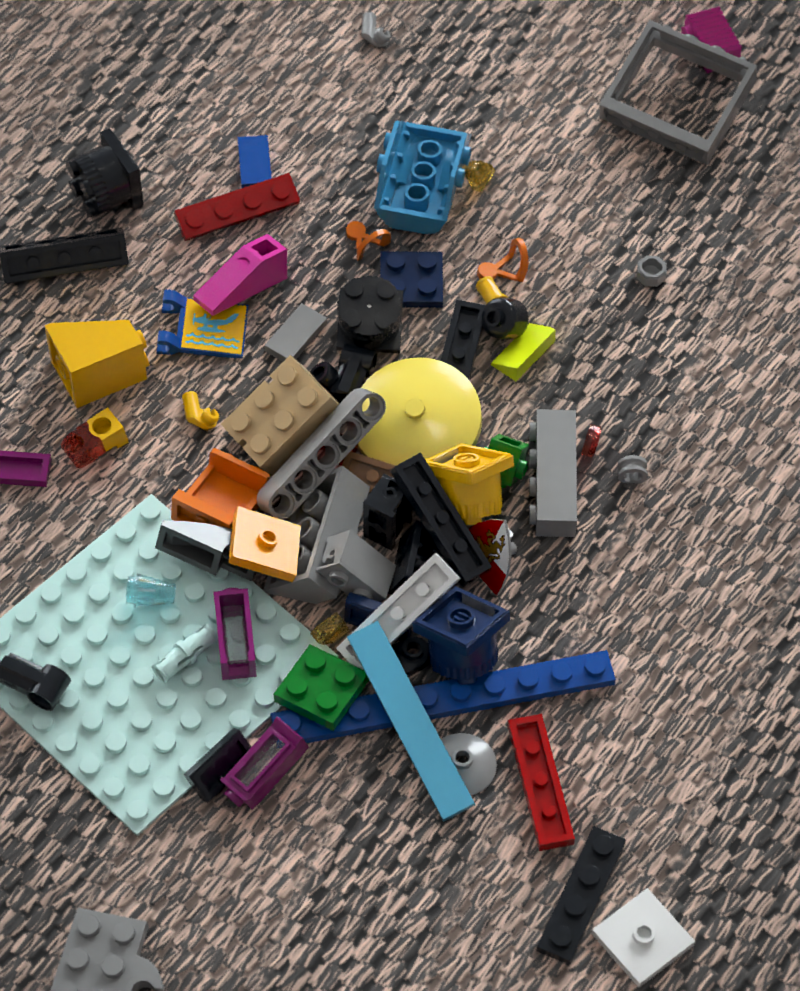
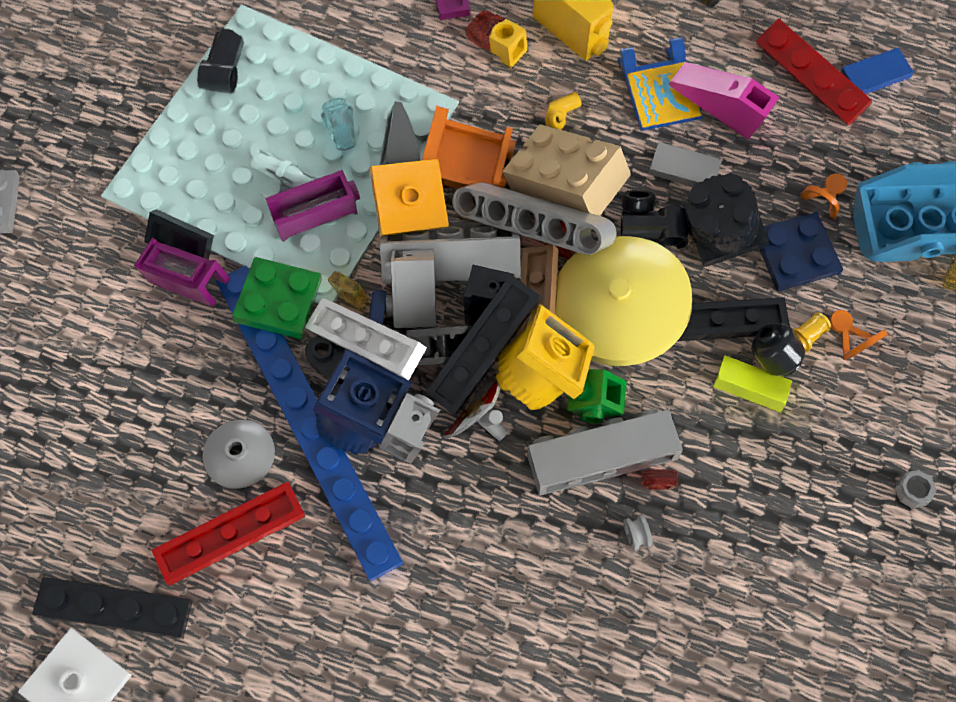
camera: 75 degrees right, 10 degrees up
(411, 721) = (256, 387): medium azure tile -> none
(502, 591) = (409, 427): none -> light grey hinge

